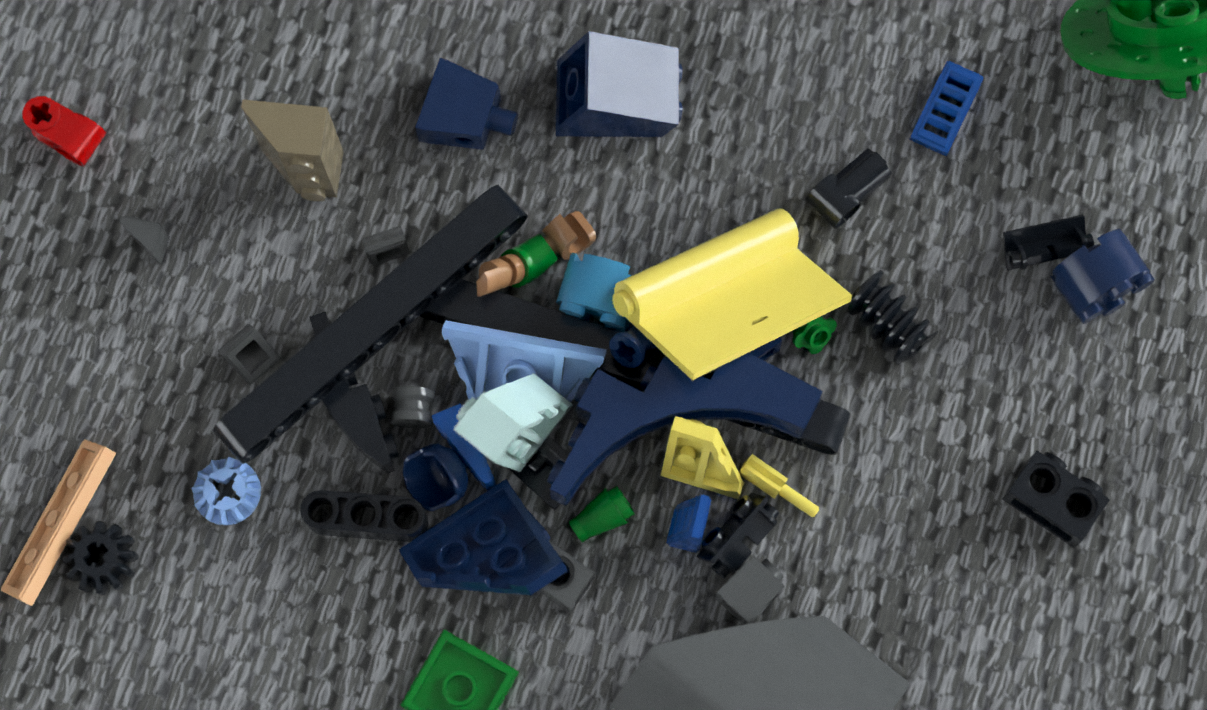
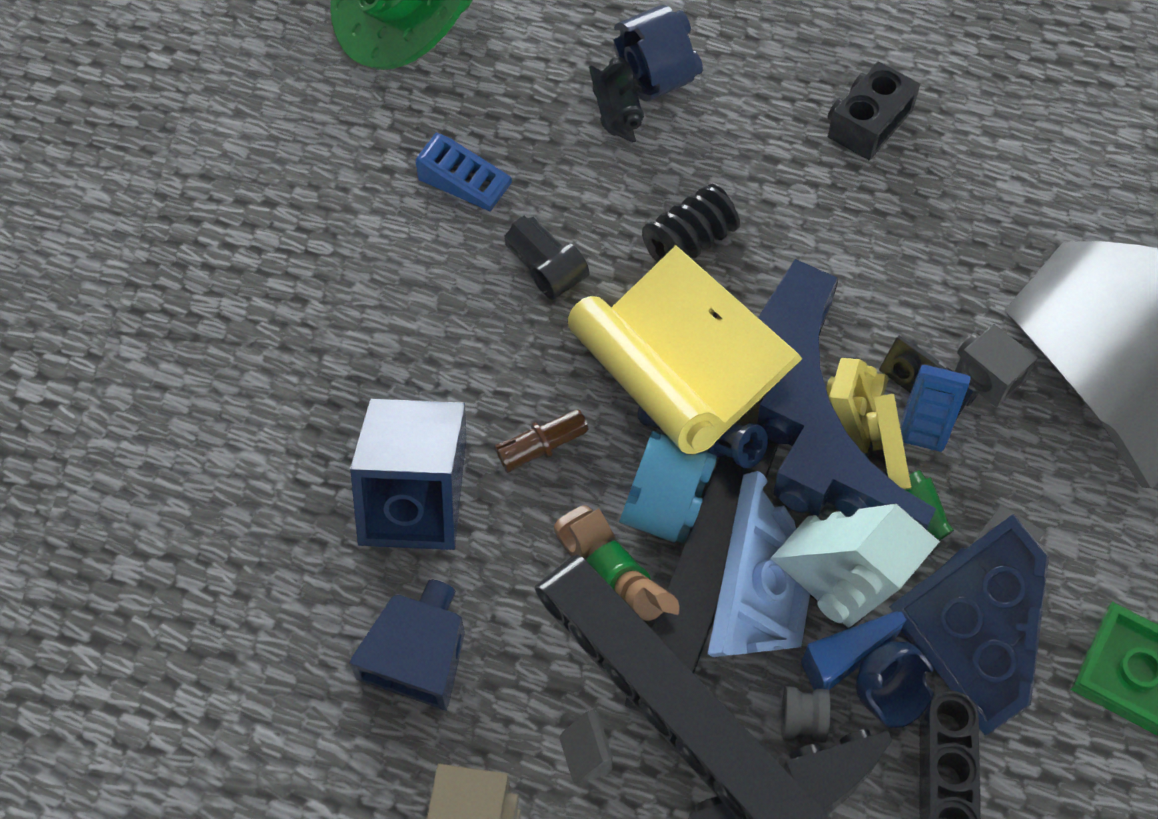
camera: 90 degrees left, 15 degrees down
(653, 479) = (887, 435): none -> light yellow wing
(656, 195) = (540, 440): none -> reddish brown axle
(774, 484) = (872, 340): light yellow axle -> none

